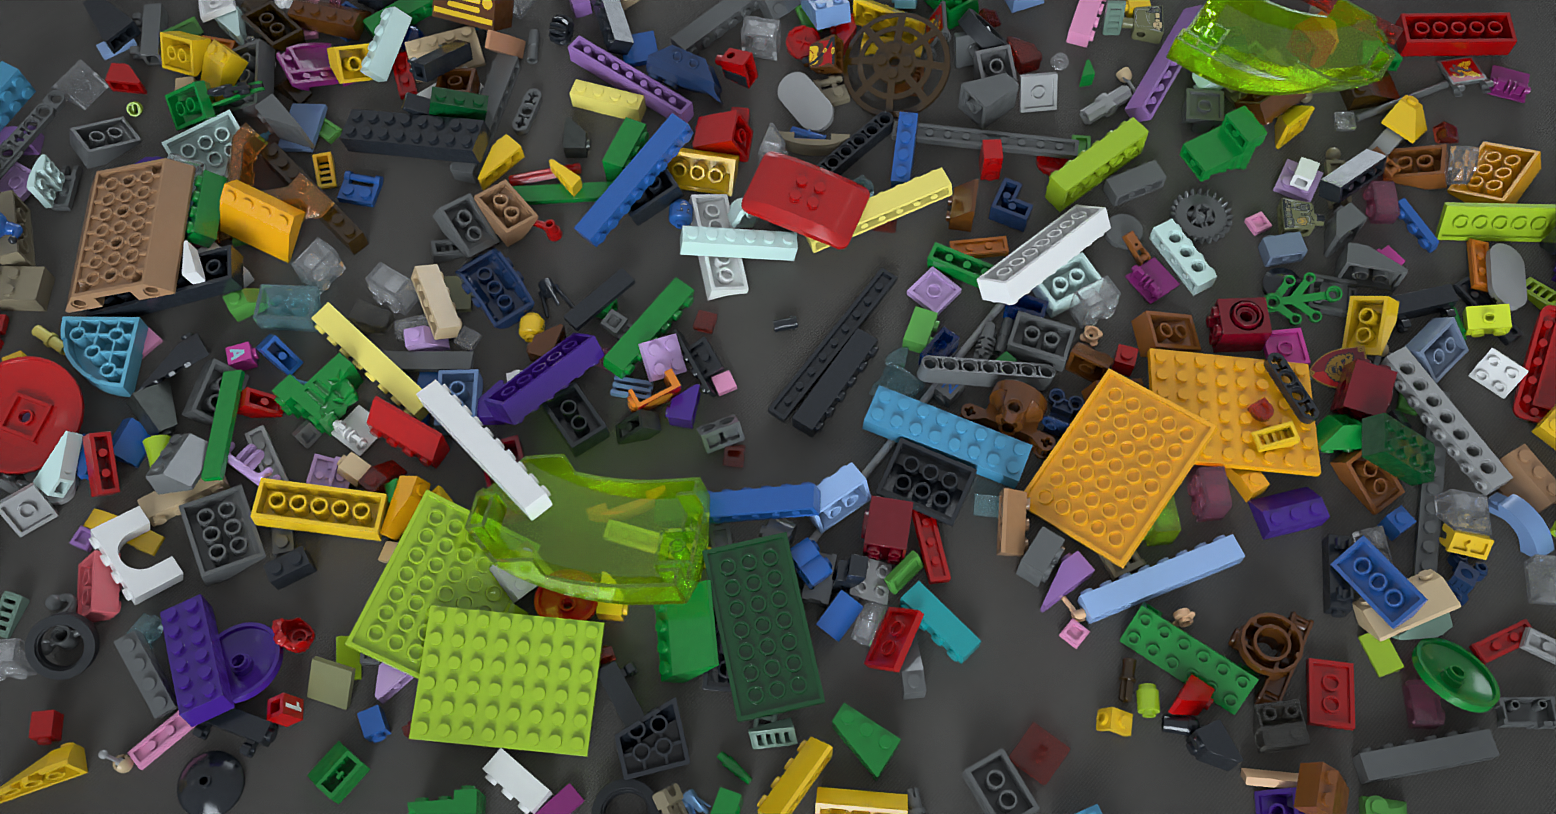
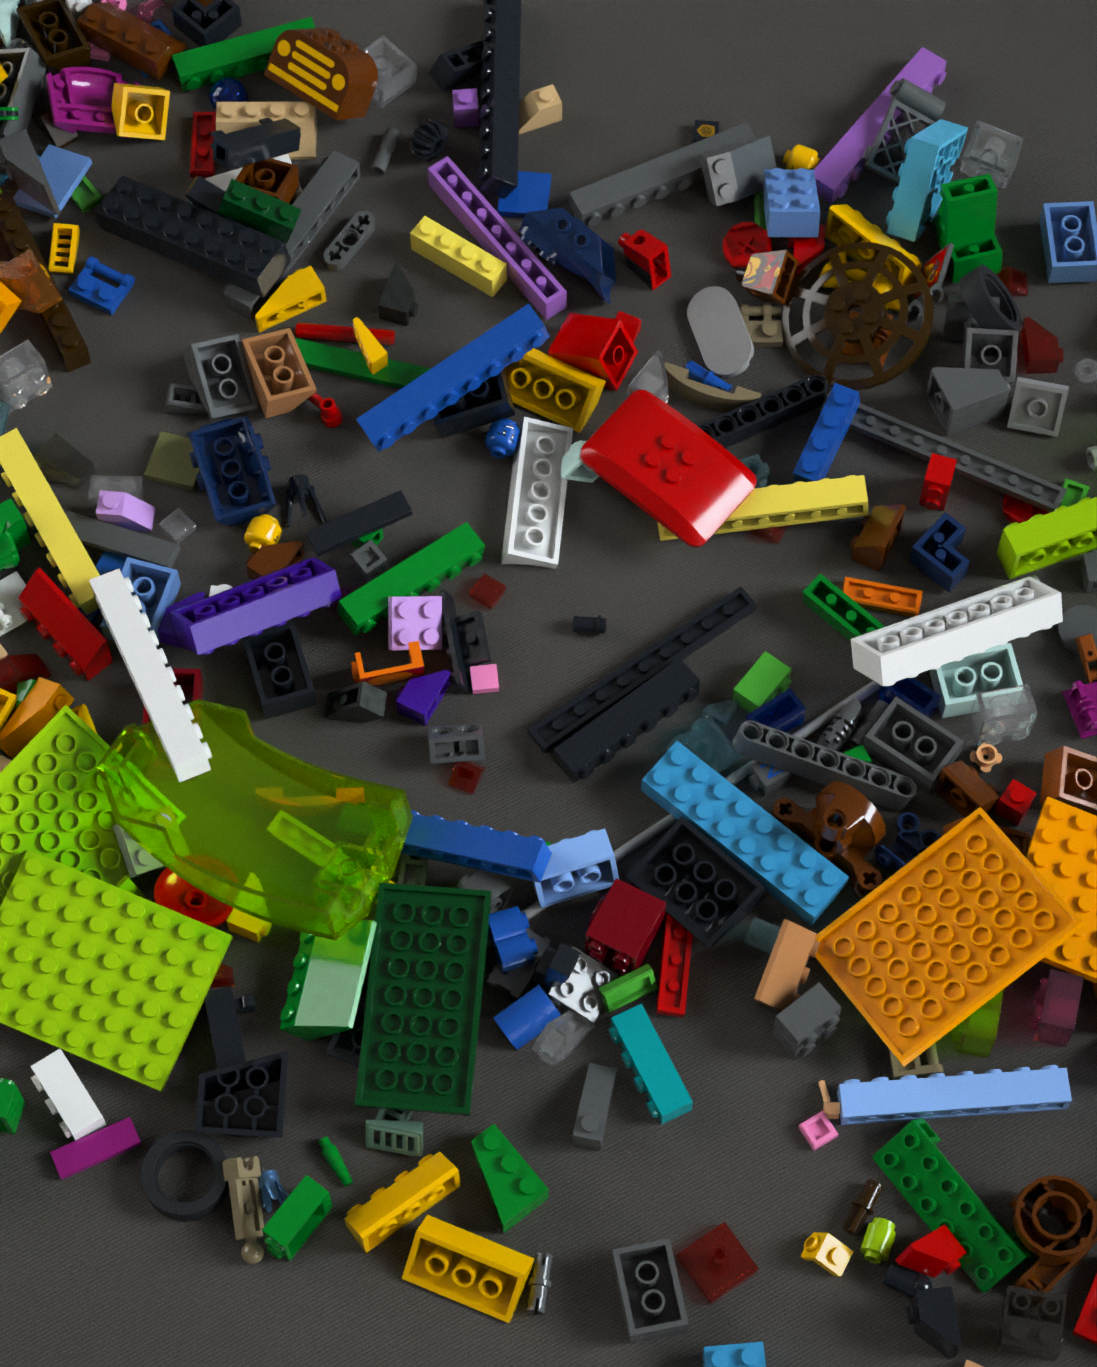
camera: 15 degrees right, 0 degrees up
(385, 44) = (191, 98): light aqua brick -> none
(392, 289) = (101, 433): clear brick -> none
(436, 301) = (152, 466): tan brick -> none
(505, 44) = (346, 142): nougat slope -> none
(624, 147) = (457, 328): green brick -> none
(631, 381) = (346, 641): medium blue tile -> none
(738, 243) = (563, 500): light aqua brick -> none
(761, 37) = (690, 225): clear brick -> none
(893, 639) = (584, 1066): red plate -> none
(934, 291) = (799, 638): lavender plate -> none
(1071, 574) = (838, 1056): medium lavender slope -> none
(1183, 617) = (964, 1153): light nougat plate -> none

